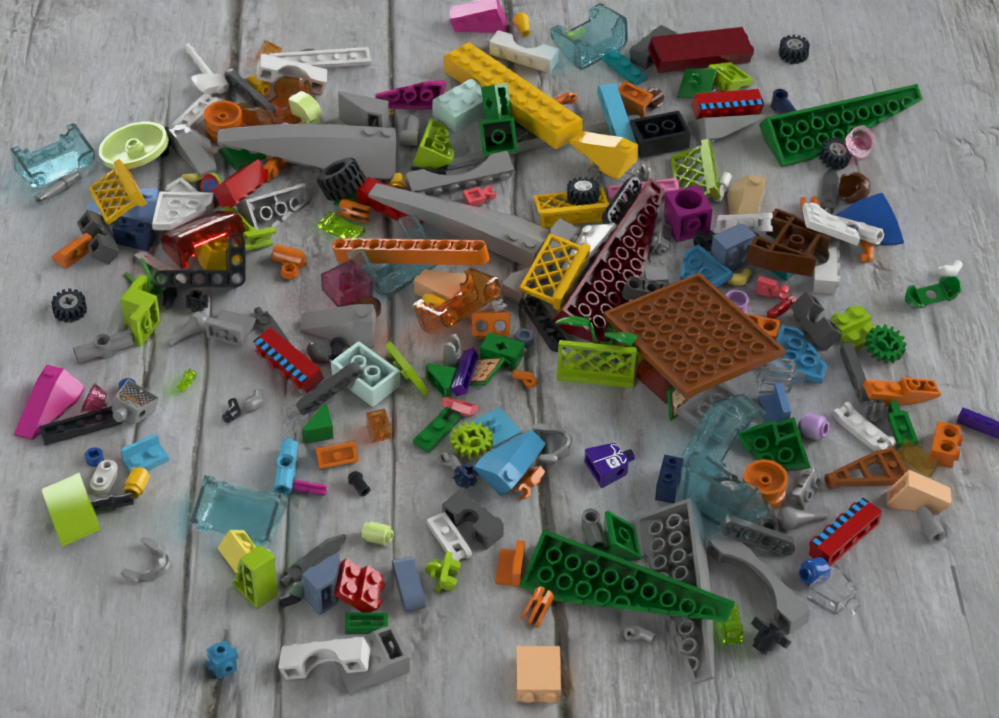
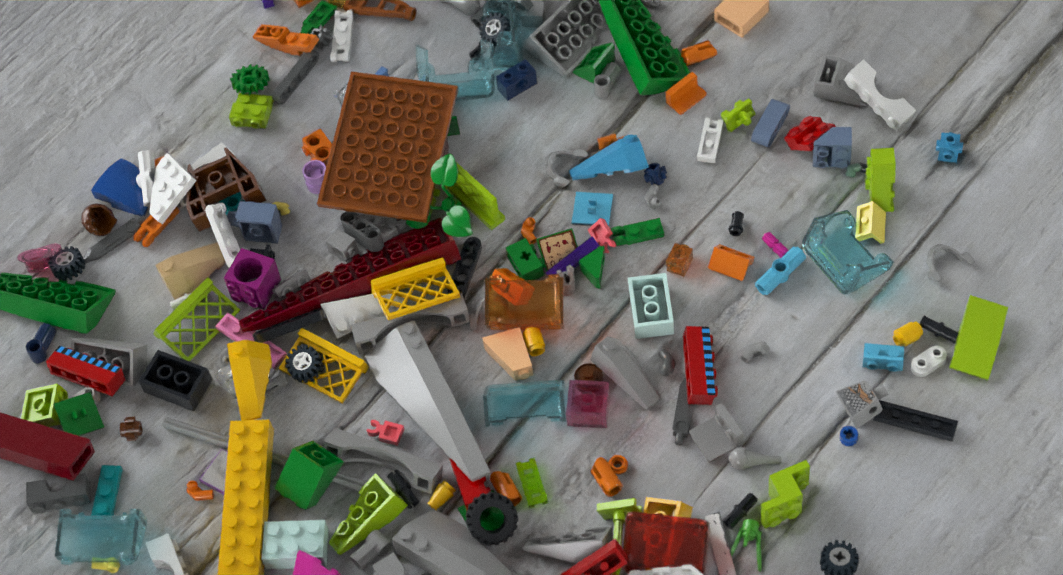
camera: 130 degrees left, 10 degrees up
(49, 398) = (924, 466): dark pink wedge -> none
(95, 399) = (892, 429): clear pink piece -> none
(95, 460) = (925, 380): blue bush -> none
(103, 346) = (829, 486): light grey piece -> none
(189, 377) = (793, 405): clear neon green arm -> none
(196, 301) = (723, 477): black gear -> none
(207, 275) = (701, 490): black beam -> none
(233, 411) = (785, 348): black arm -> none
(313, 558) = (820, 189): dark grey piece -> none
(319, 427) = (725, 288): green slope -> none
(329, 388) = (715, 312): dark grey beam -> none
(337, 345) = (648, 354): black pin -> none
(365, 626) = (826, 114): green tile -> none
(377, 533) = (759, 174): yellowish green brick -> none
(405, 368) = (614, 288): lime wing -> none
(415, 251) = (517, 393): orange beam -> none
(462, 509) = (683, 152): dark grey arch -> none
(469, 440) = (622, 201): lime gear -> none
(496, 101) = (275, 504): green brick -> none
(525, 336) = (490, 266): sand blue tile -> none
(607, 463) = (544, 120): dark purple torso -> none
(614, 111) = (191, 419): medium azure beam -> none
(634, 98) = (149, 434): orange panel -> none
(701, 261) = (303, 227): dark azure plate -> none
(769, 288) = (271, 181): coral plate -> none
(770, 479) = (461, 31): orange wheel -> none
(777, 443) = (403, 58): green brick -> none
(781, 307) = (280, 162): red axle -> none
(802, 353) = (318, 112): dark azure plate -> none
(805, 488) = (439, 17): light grey hinge -> none
(806, 310) = (282, 115): dark grey arch -> none
(813, 426) = (375, 54): lavender head -> none
(946, 289) = (151, 94): green piece -> none
(950, 270) = (128, 109): white arm -> none

